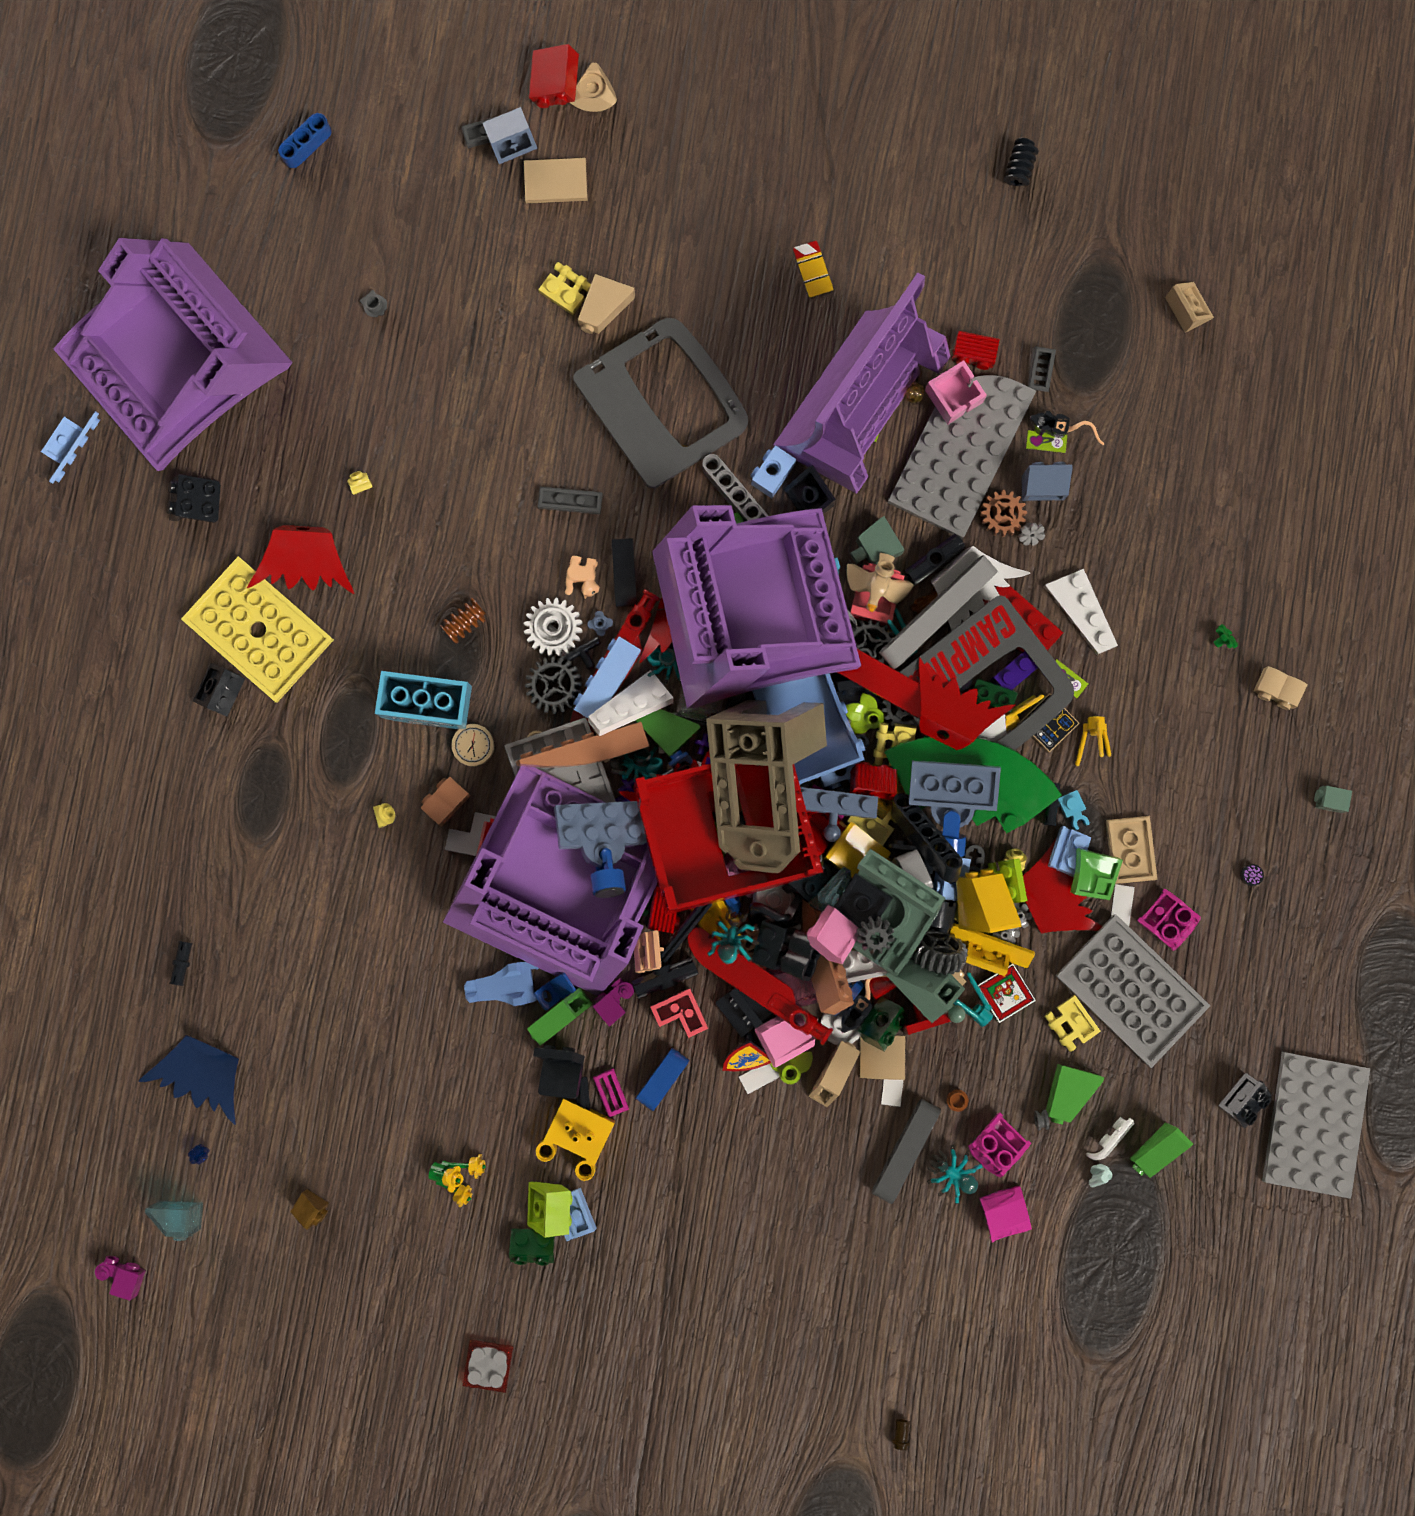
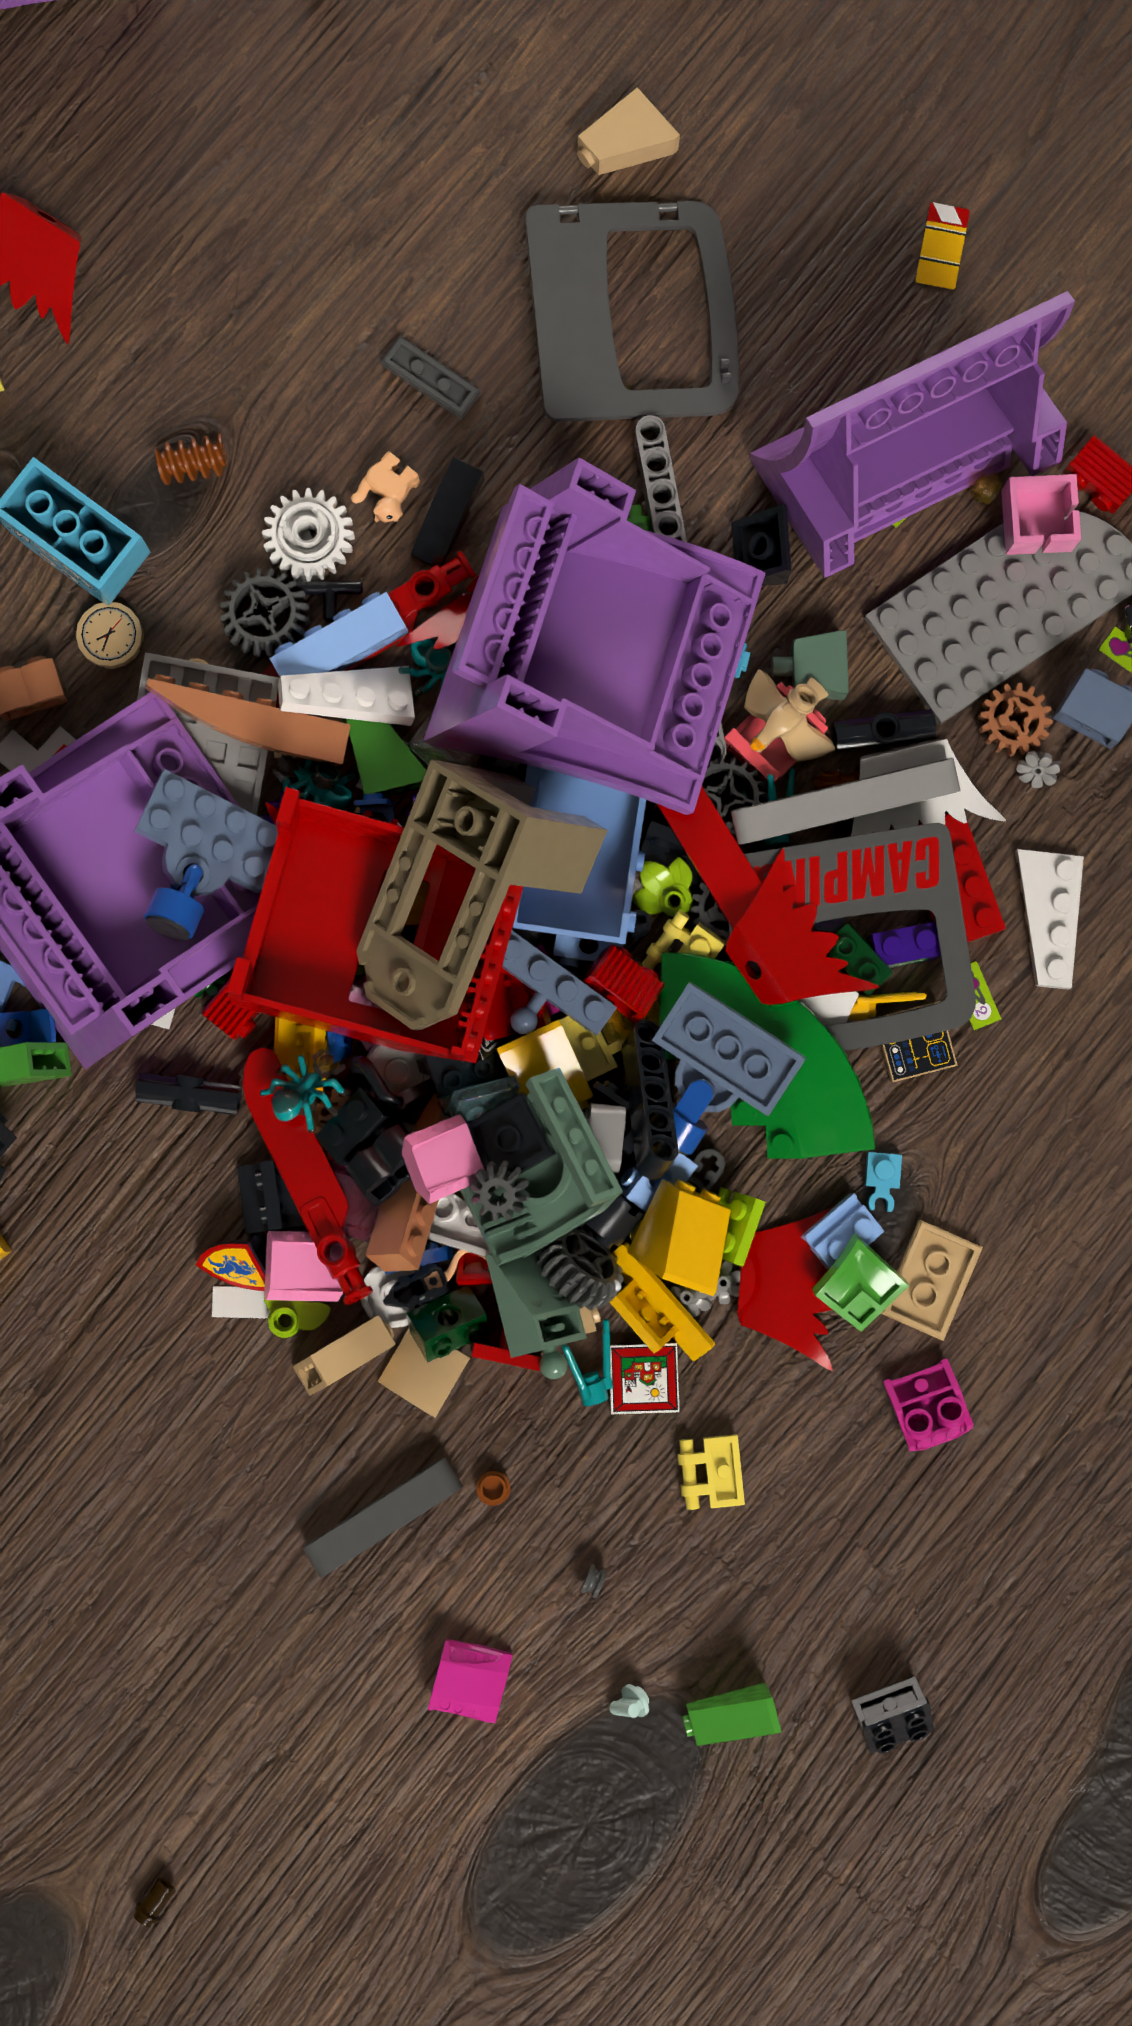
camera: 25 degrees right, 0 degrees up
(359, 482) = (159, 197): light yellow plate -> none
(561, 293) = (578, 92): light yellow plate -> none
(600, 629) = (371, 574): sand blue plate -> none
(604, 1075) = (39, 1213): dark pink tile -> none
(609, 1005) = (90, 1088): magenta brick -> none
(647, 952) = (182, 1043): light nougat piece -> none
(662, 1079) = (105, 1230): blue beam -> none
(682, 1006) = (188, 1146): coral brick -> none
(683, 931) = (242, 1046): black axle -> none
(769, 483) = (718, 504): light blue brick -> none
(892, 1092) = (411, 1426): white sticker -> none
(956, 1174) = (433, 1588): animal -> none
(998, 1146) = (513, 1583): dark pink slope -> none
(1015, 854) = (769, 1196): light yellow plate -> none
(1050, 812) = (850, 1162): black pin -> none
(1070, 1092) = (655, 1565): bright green slope -> none
(1097, 727) = (977, 1084): yellow plant -> none
(1110, 1142) = (671, 1666): white piece -> none
(1123, 902) = (874, 1350): white sticker -> none
(1132, 990) = (822, 1475): light grey plate -> none
(1252, 875) = (1079, 1409): black tile -> none
(1316, 1125) = (973, 1806): light grey plate -> none

